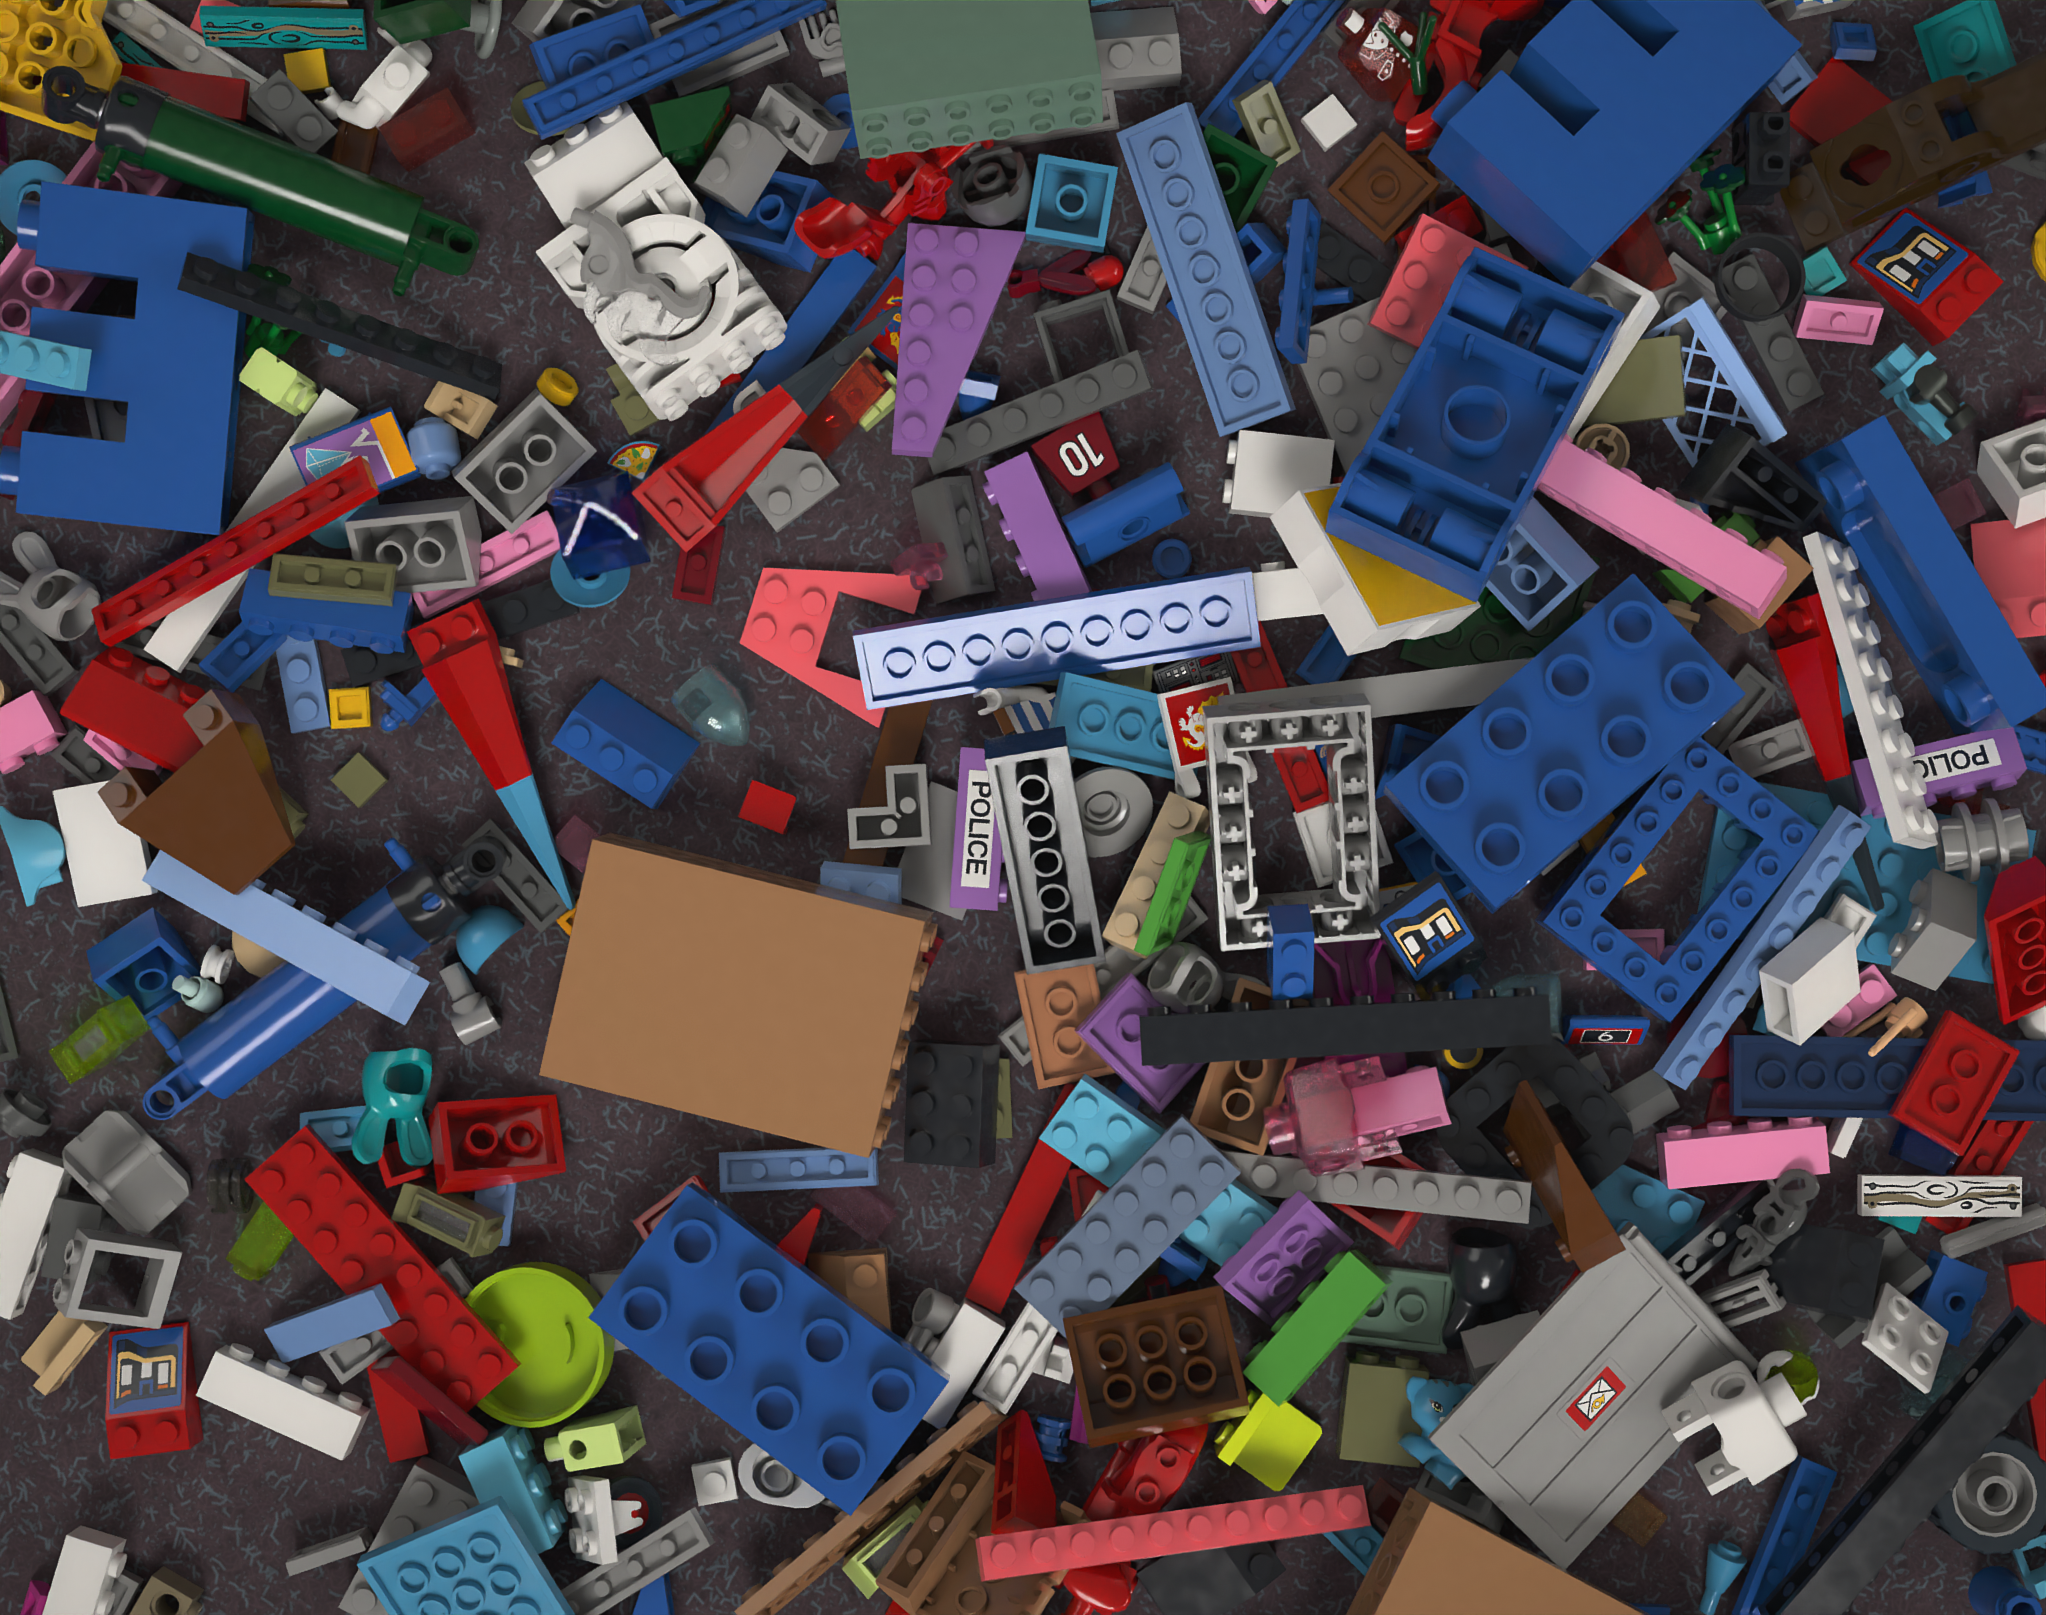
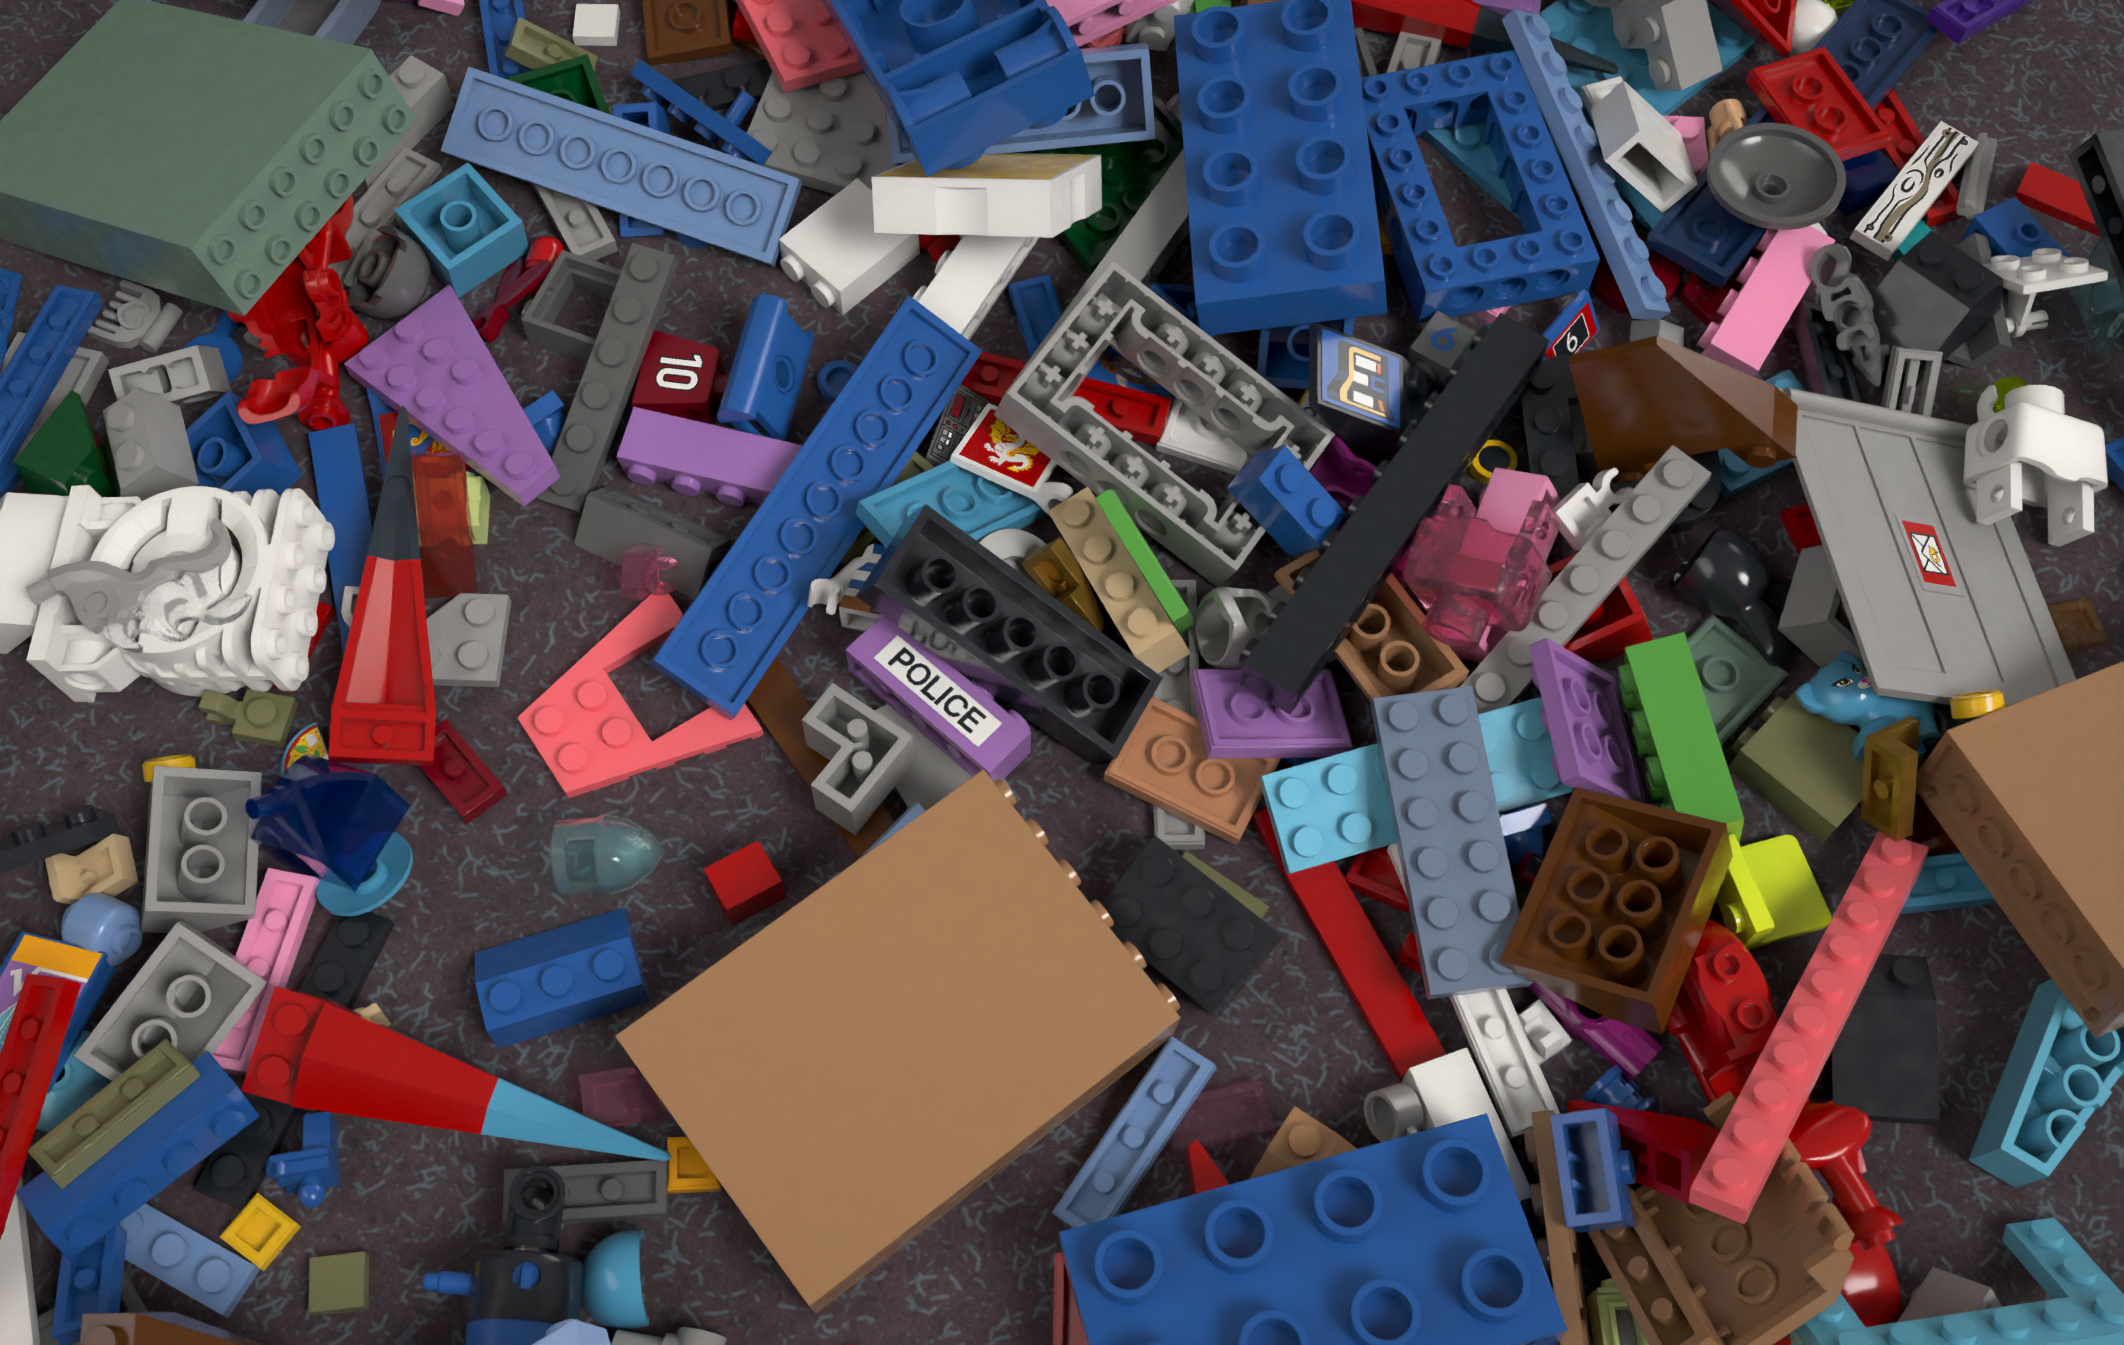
camera: 55 degrees left, 25 degrees down
(972, 1461) = (1593, 1170): none -> blue brick
(1121, 852) = (1062, 577): none -> pearl gold slope
(1392, 1476) = (1891, 778): none -> pearl gold panel
(1449, 1149) = (1587, 508): none -> white plate
(1478, 1505) = (1976, 703): none -> yellow tile
(1520, 952) = (1439, 348): none -> dark grey brick
(1867, 1098) = (1776, 176): none -> dark grey dish

